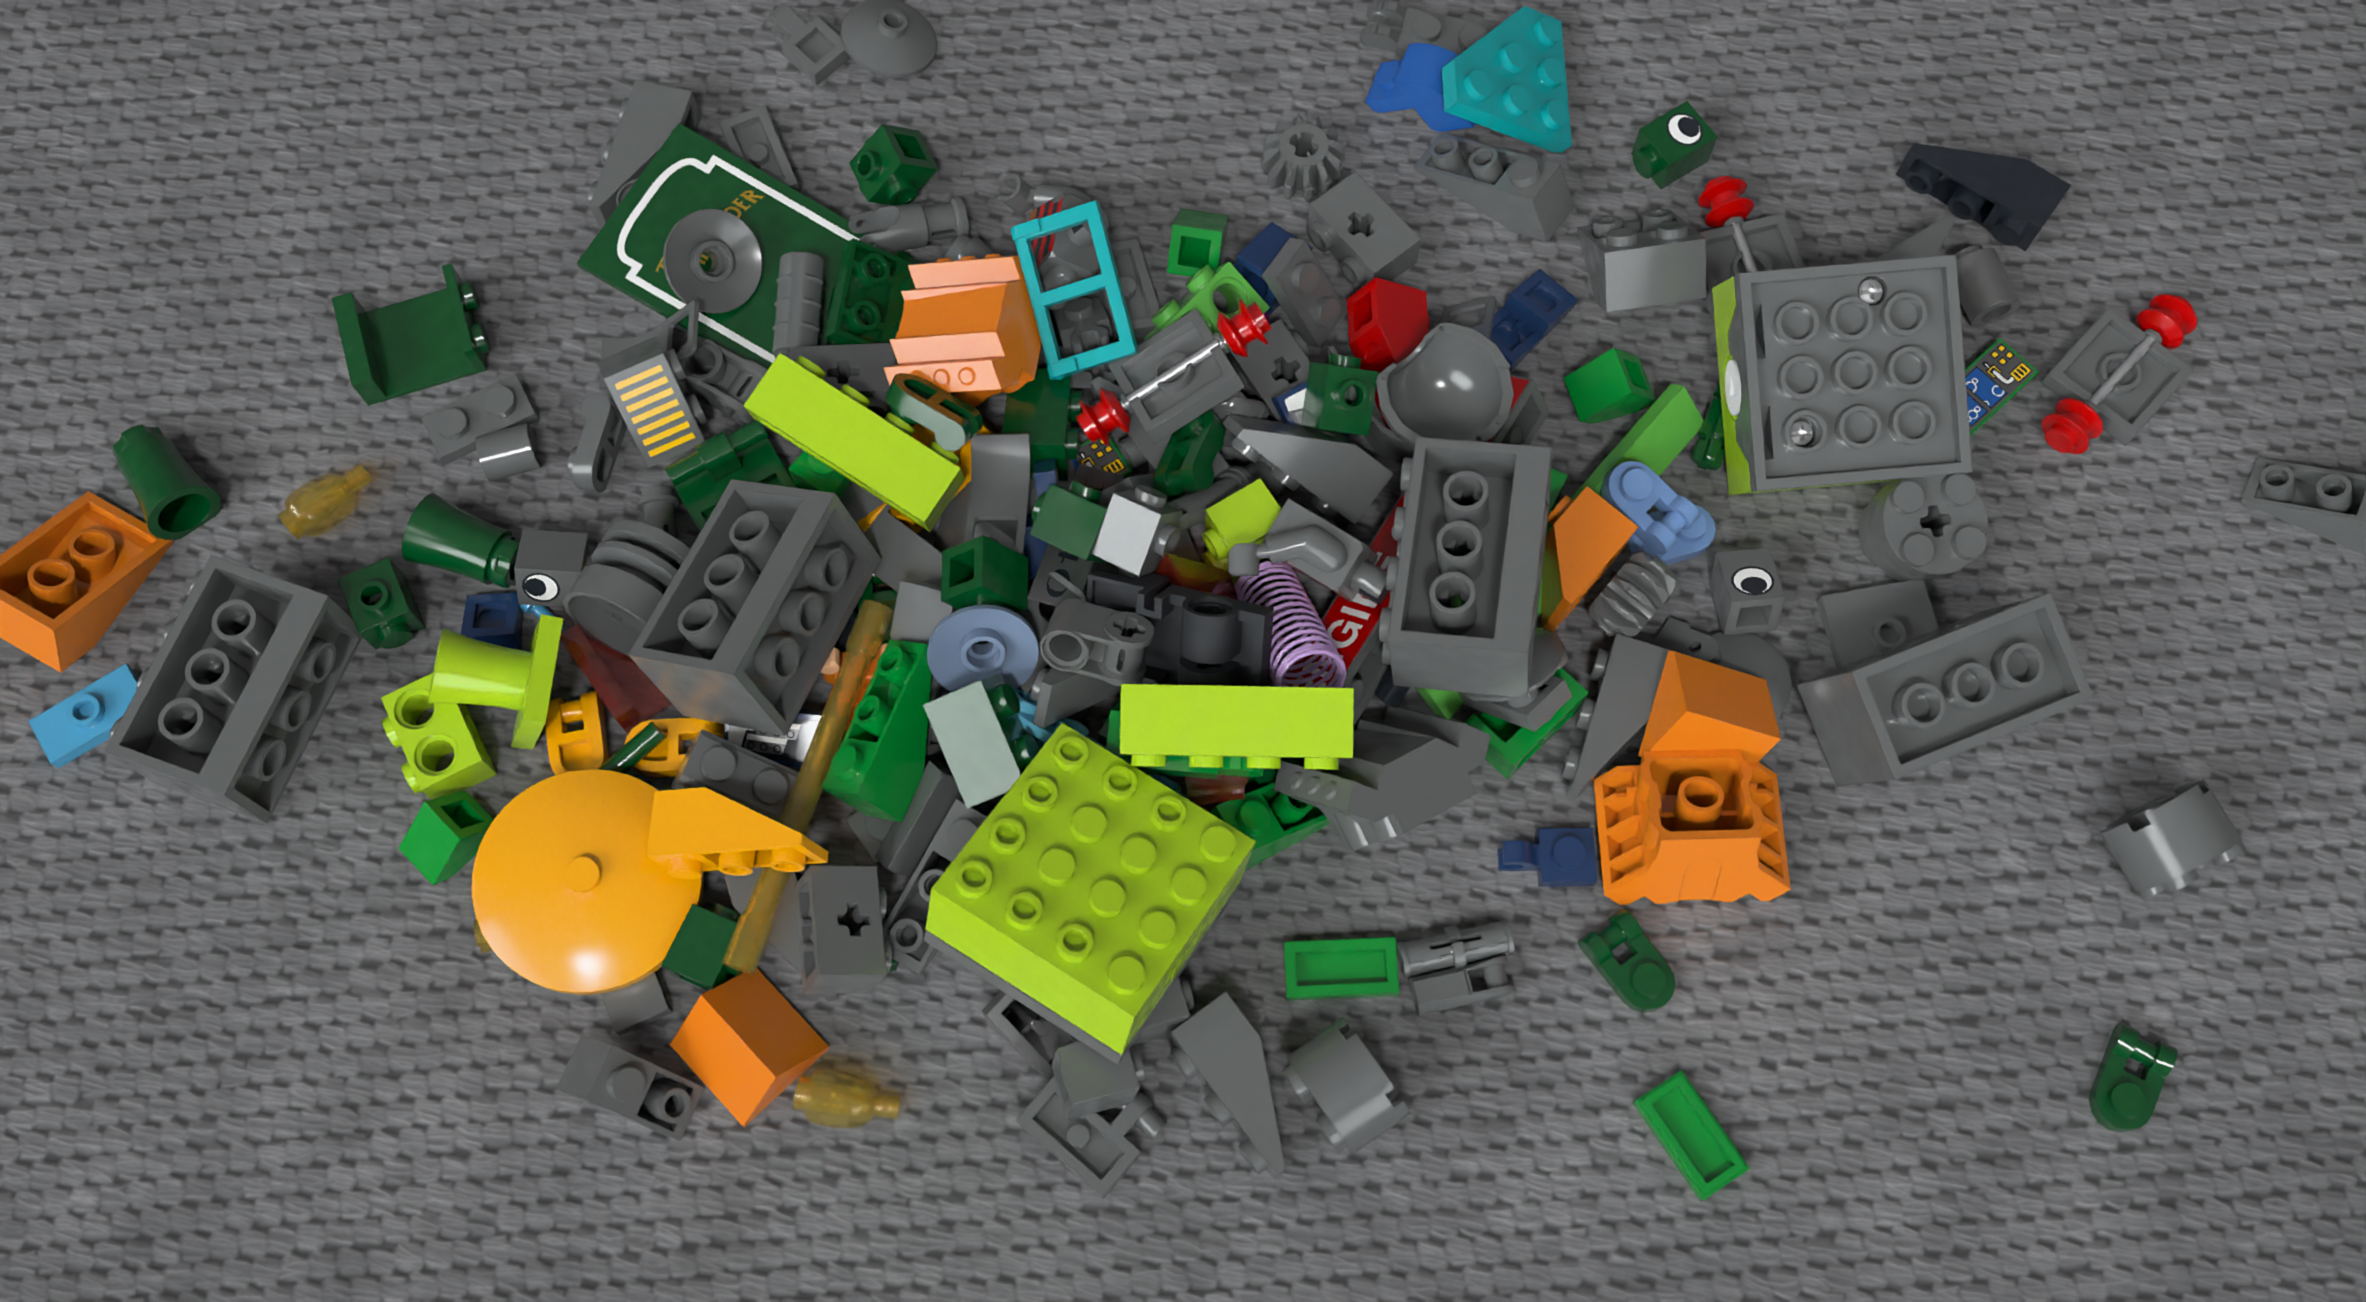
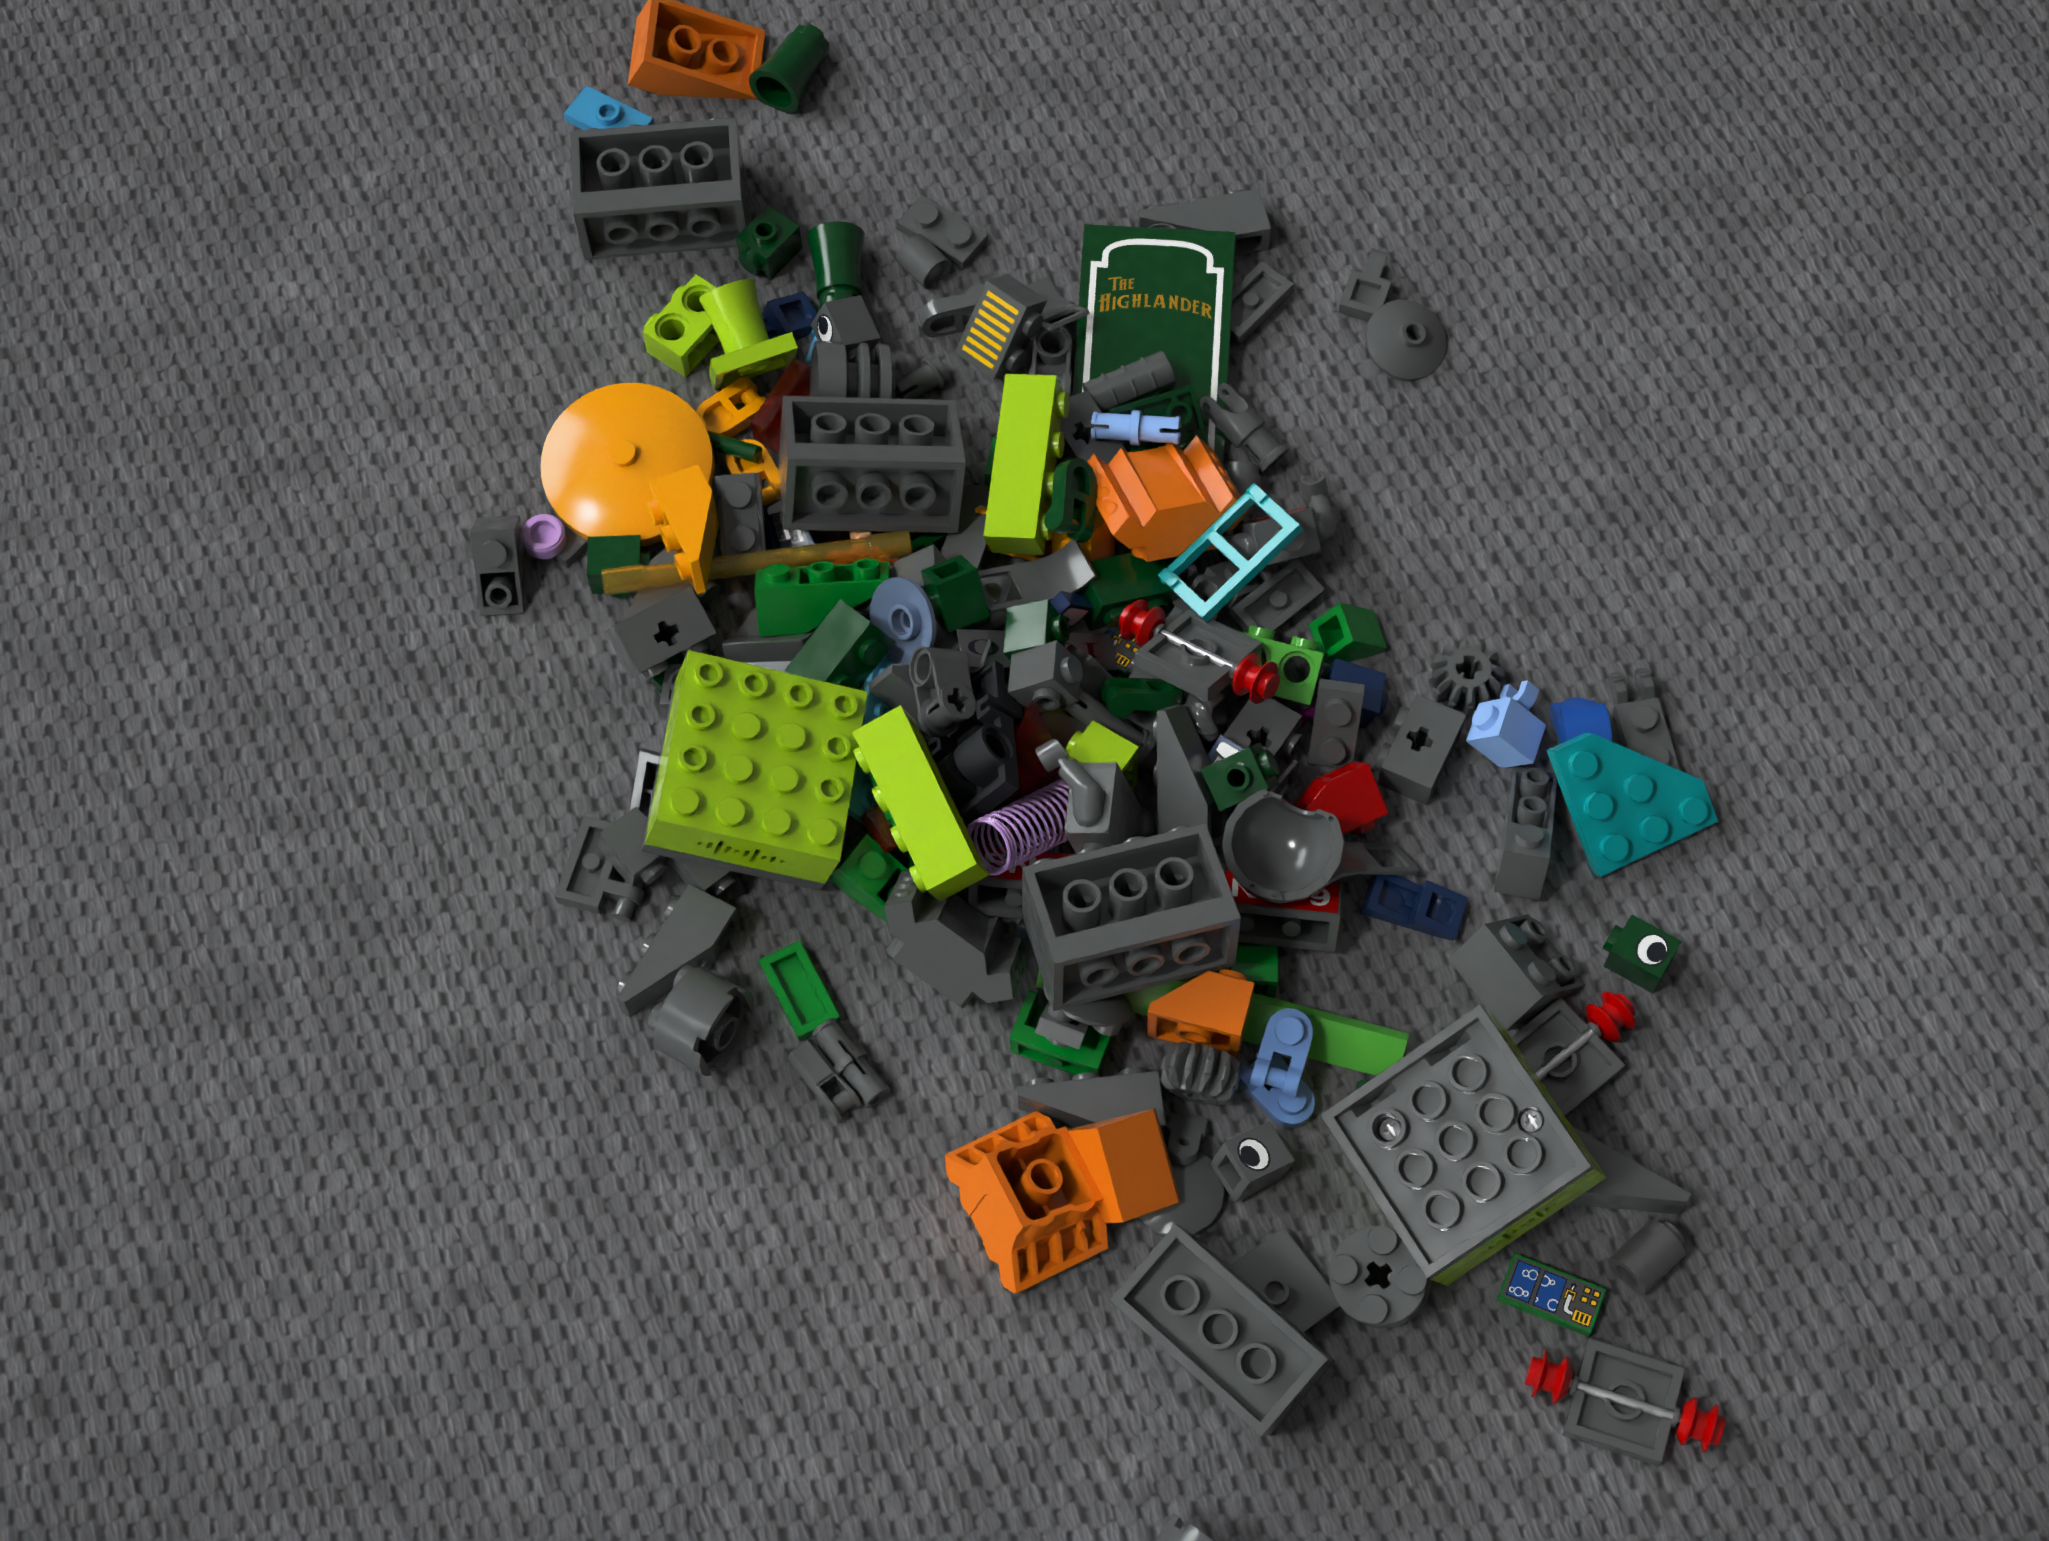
camera: 65 degrees right, 5 degrees down
(322, 502) = (826, 169): clear yellow plant -> none
(412, 341) = (978, 157): dark green panel -> none
(445, 835) = (623, 363): green brick -> none
(623, 1019) = (543, 536): none -> lavender tile
(733, 255) = (1124, 328): dark grey dish -> none
(736, 456) = (978, 408): dark green plate -> none
(747, 1044) = (566, 623): orange slope -> none
(842, 1099) = (551, 700): clear yellow plant -> none
(873, 314) = (1135, 427): none -> light blue pin
(893, 165) = (1287, 392): dark green brick -> none
(1383, 144) = (1506, 728): none -> light blue brick
(1558, 856) = (961, 1111): dark blue plate -> none
(1609, 387) = (1386, 992): green brick -> none
(1642, 981) = (891, 1212): dark green plate -> none
(1691, 1135) = (784, 1294): green tile -> none
(1993, 190) = (1750, 1236): black slope -> none

